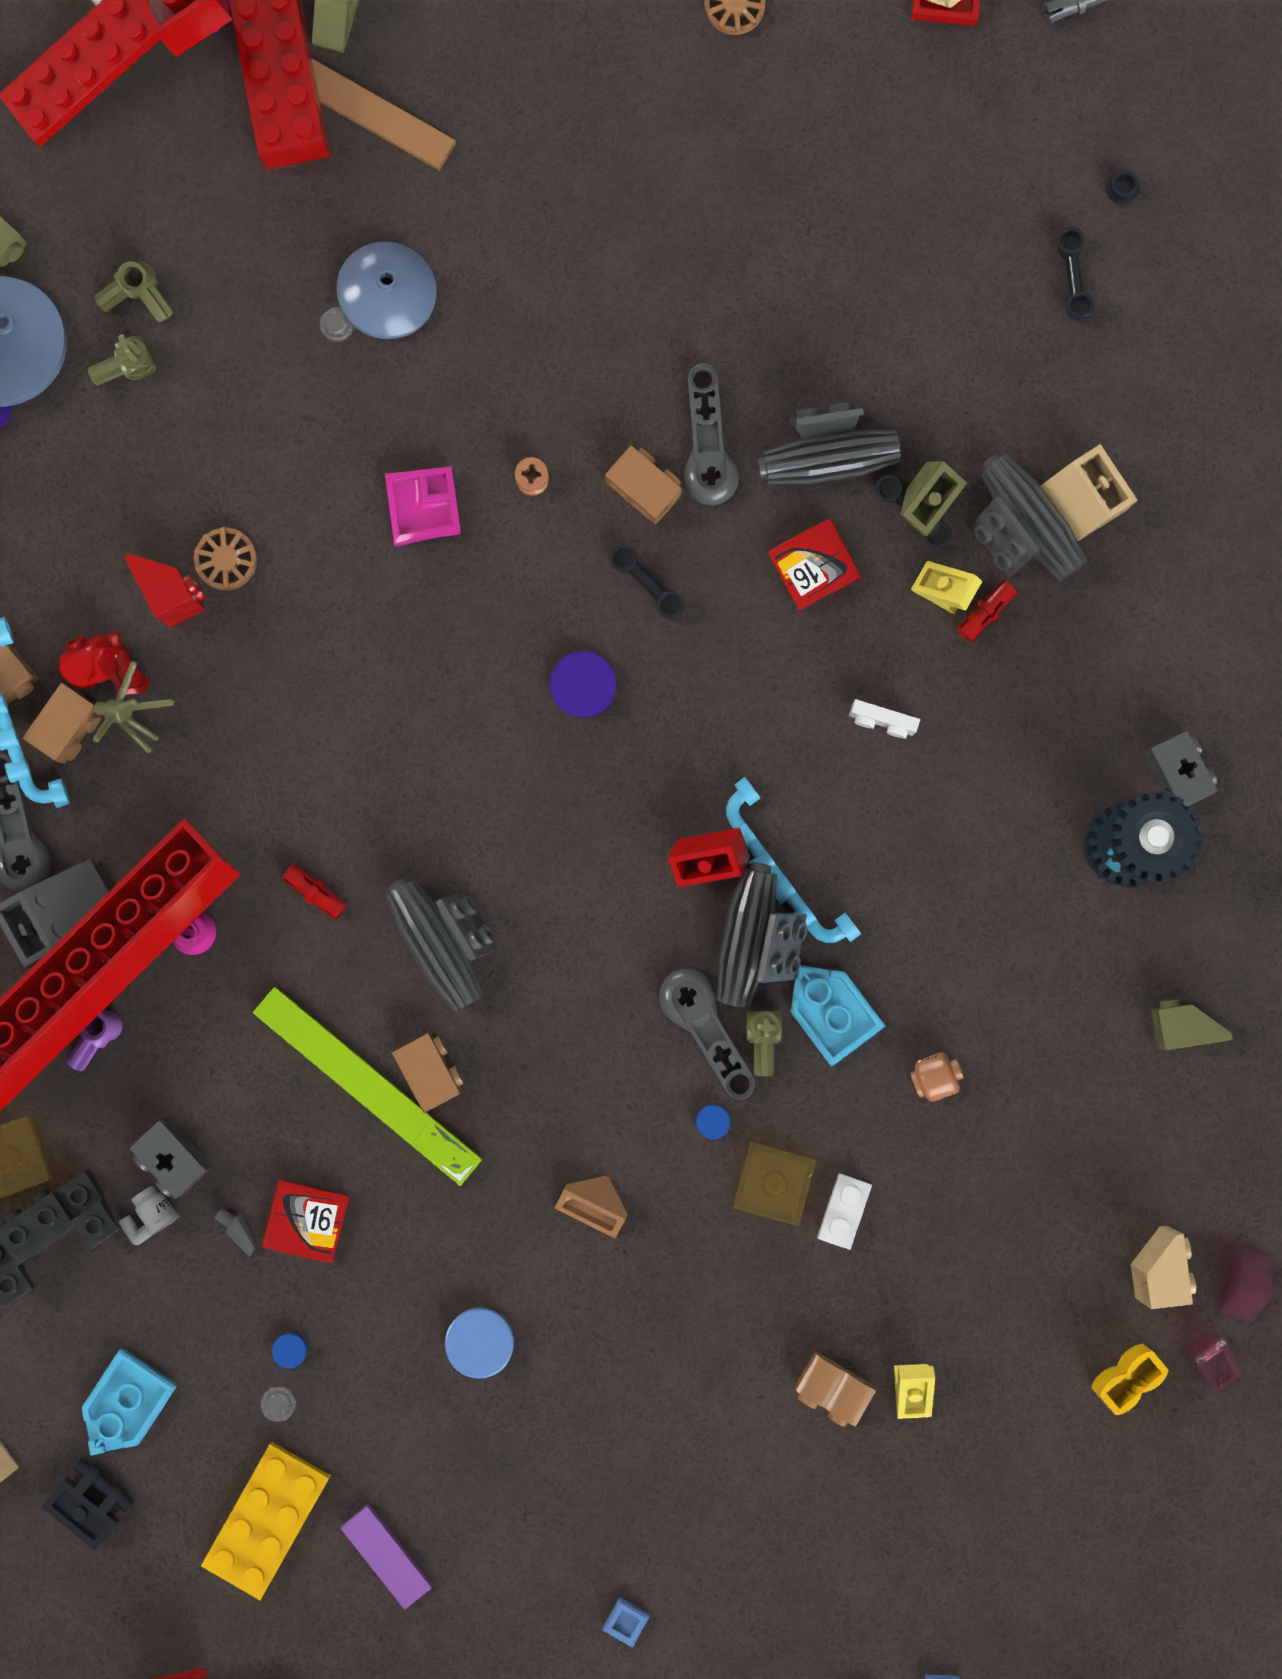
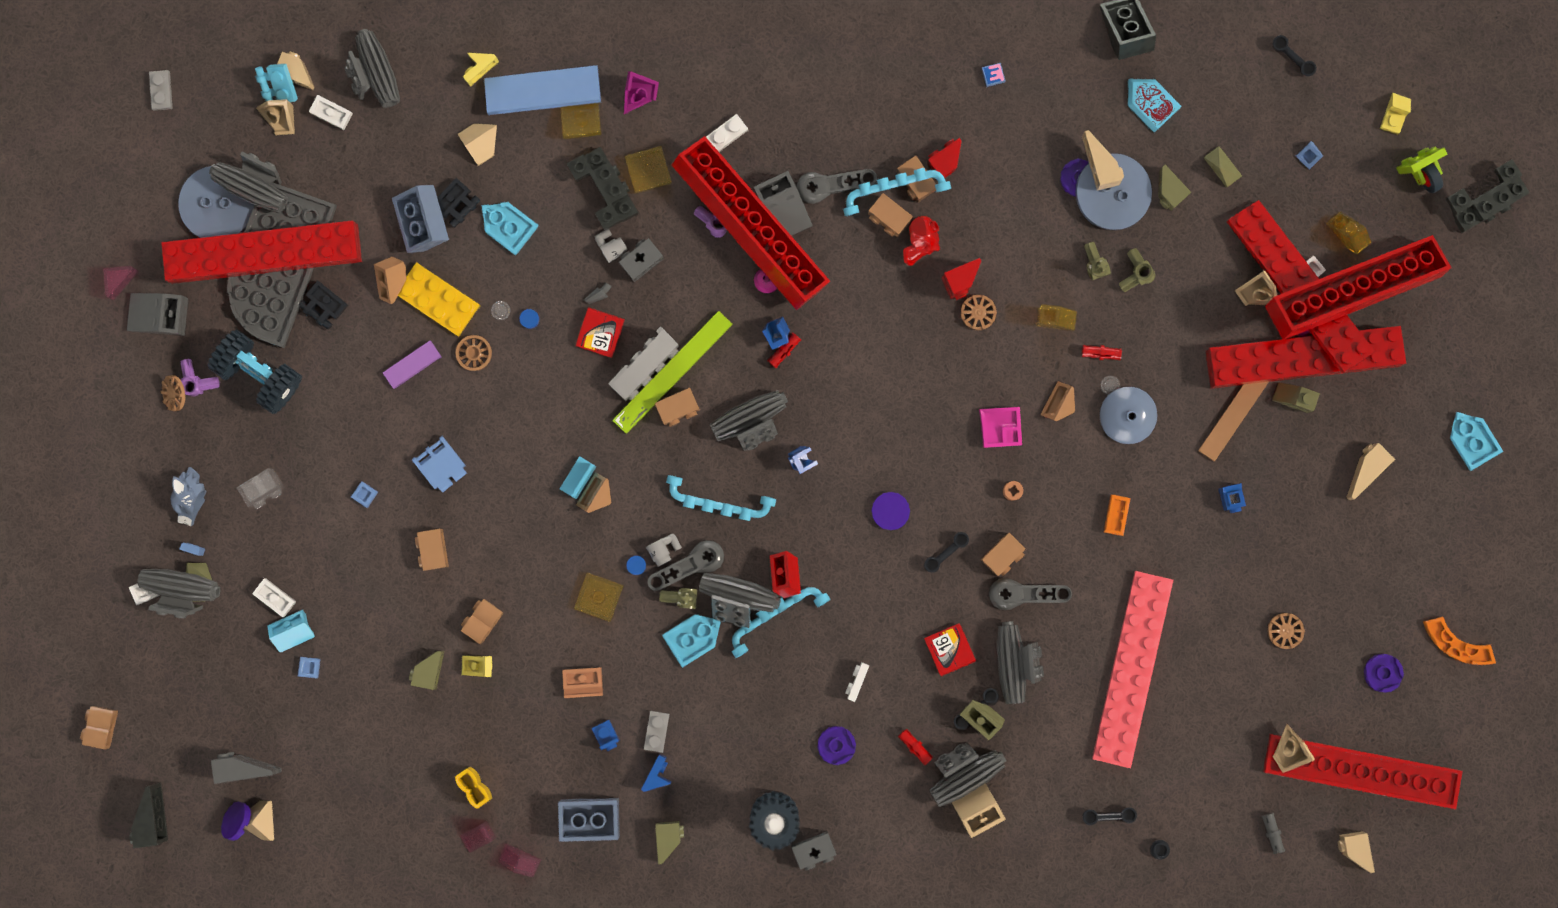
camera: 90 degrees right, 0 degrees up
(118, 1568) = (420, 218): none -> sand blue brick
(120, 712) = (893, 248): olive plant -> none
(155, 83) = (1257, 290): none -> tan slope
(224, 424) = (1056, 317): none -> clear yellow slope
(232, 1612) = (390, 278): none -> medium nougat slope
(281, 342) = (1101, 352): none -> red pin
(284, 906) = (776, 332): none -> blue window
(357, 1136) = (644, 364): none -> light grey wedge
(358, 1446) = (473, 353): none -> medium nougat wheel
(372, 407) = (1060, 402): none -> medium nougat slope
(479, 1342) = (524, 424): medium blue tile -> none
(505, 849) = (799, 459): none -> window
(515, 104) = (1232, 498): none -> blue window
(560, 297) = (1116, 515): none -> orange plate
(563, 1488) = (440, 465): none -> medium blue plate
(566, 1239) = (577, 477): none -> medium azure panel
(597, 1001) = (708, 505): none -> medium azure bar
(686, 1082) = (659, 551): none -> light grey piece
(715, 1491) = (432, 549): none -> medium nougat brick
(821, 254) = (1132, 669): none -> coral plate
(844, 1211) = (580, 635): white plate -> none
(927, 1199) = (582, 682): none -> nougat plate
(933, 1478) = (427, 672): none -> olive slope
(937, 1077) = (651, 694): nougat head -> none
(946, 586) = (931, 724): light yellow slope -> none
(992, 756) = (832, 739): none -> dark purple tile
(1000, 1061) = (656, 731): none -> light grey plate
(1016, 1150) = (606, 735): none -> blue bracket
(1086, 1057) = (654, 780): none -> blue slope
(1162, 1271) = (532, 810): tan slope -> none
(1166, 1168) = (589, 819): none -> sand blue brick

